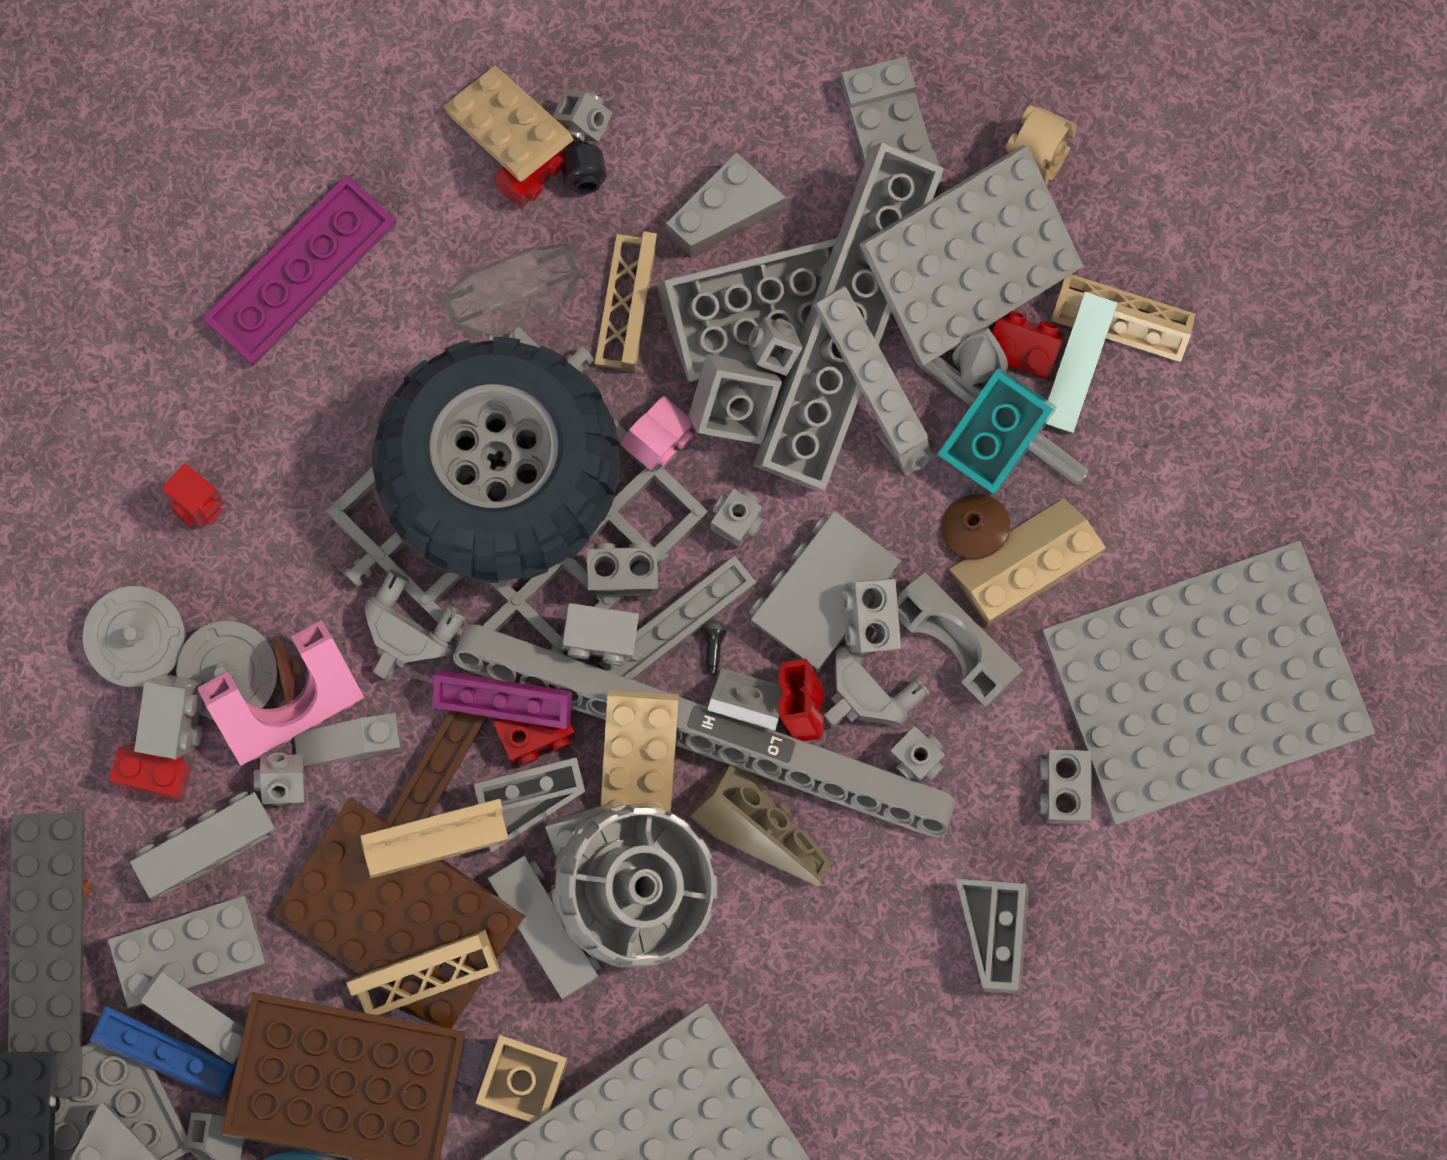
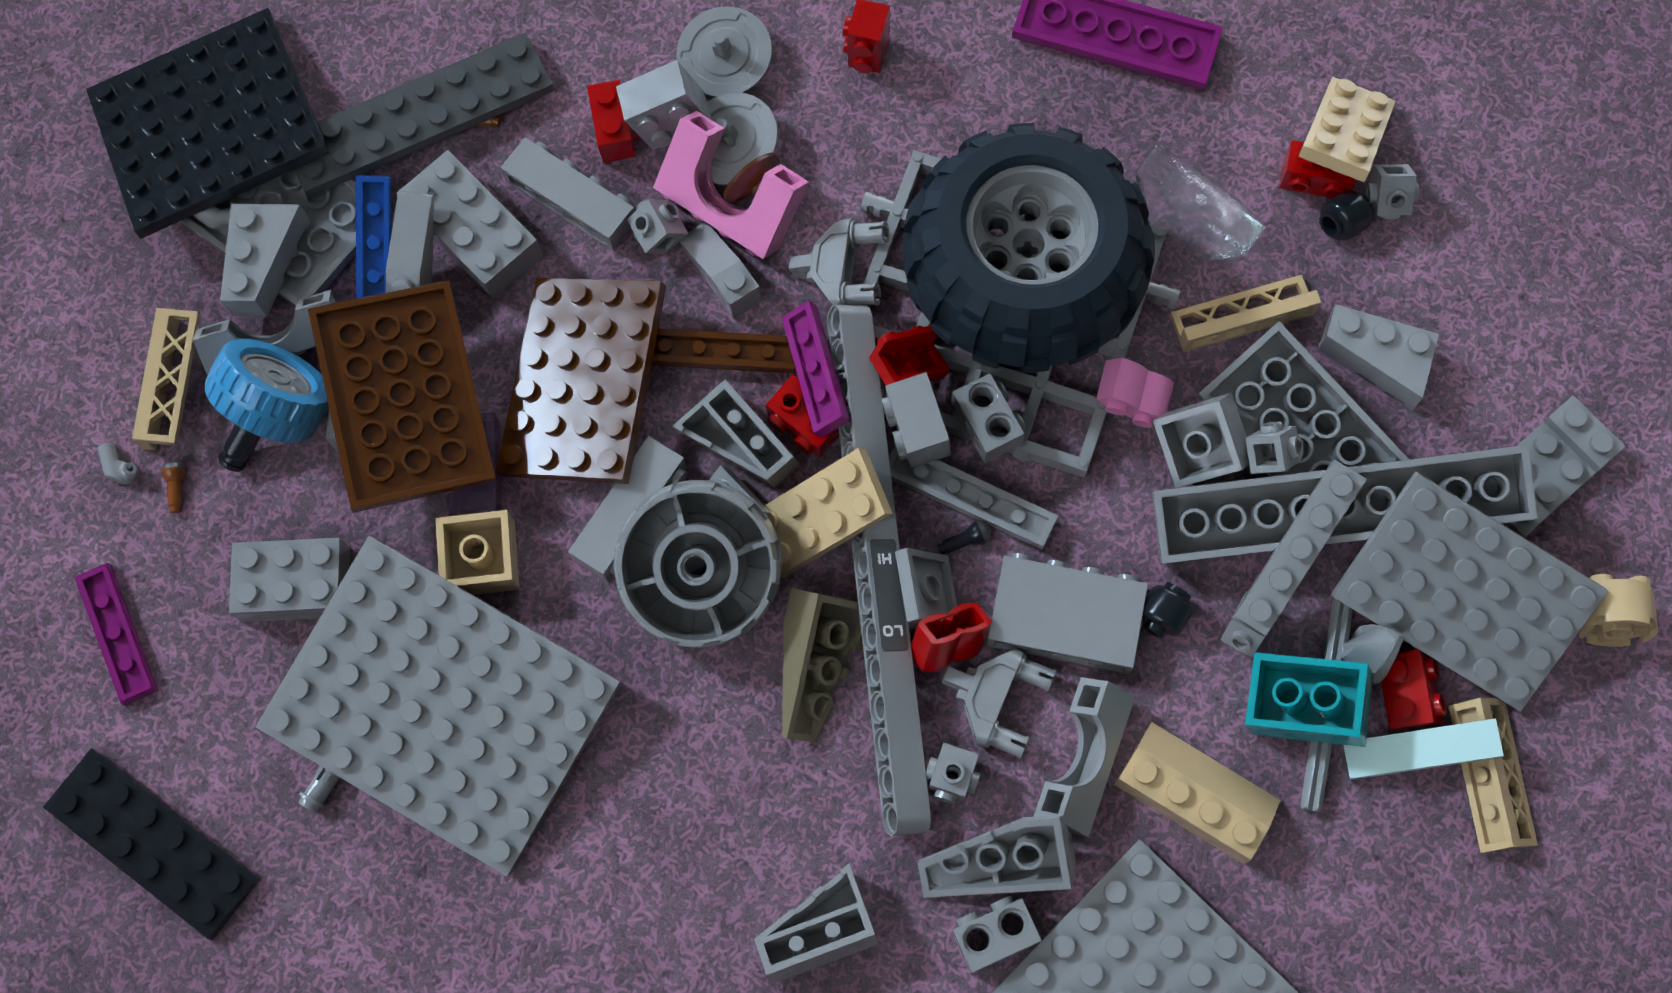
camera: 75 degrees right, 5 degrees down
(419, 962) = (539, 410): tan fence -> none
(434, 838) = (656, 365): tan fence -> none
(536, 613) = (908, 355): none -> red bracket
(737, 528) = (1095, 499): light grey brick -> none
(862, 506) = (1166, 610): none -> black head
(882, 615) = (1069, 671): light grey brick -> none
(976, 540) = (1202, 740): reddish brown dish -> none
(1013, 744) = (1009, 859): none -> light grey wedge

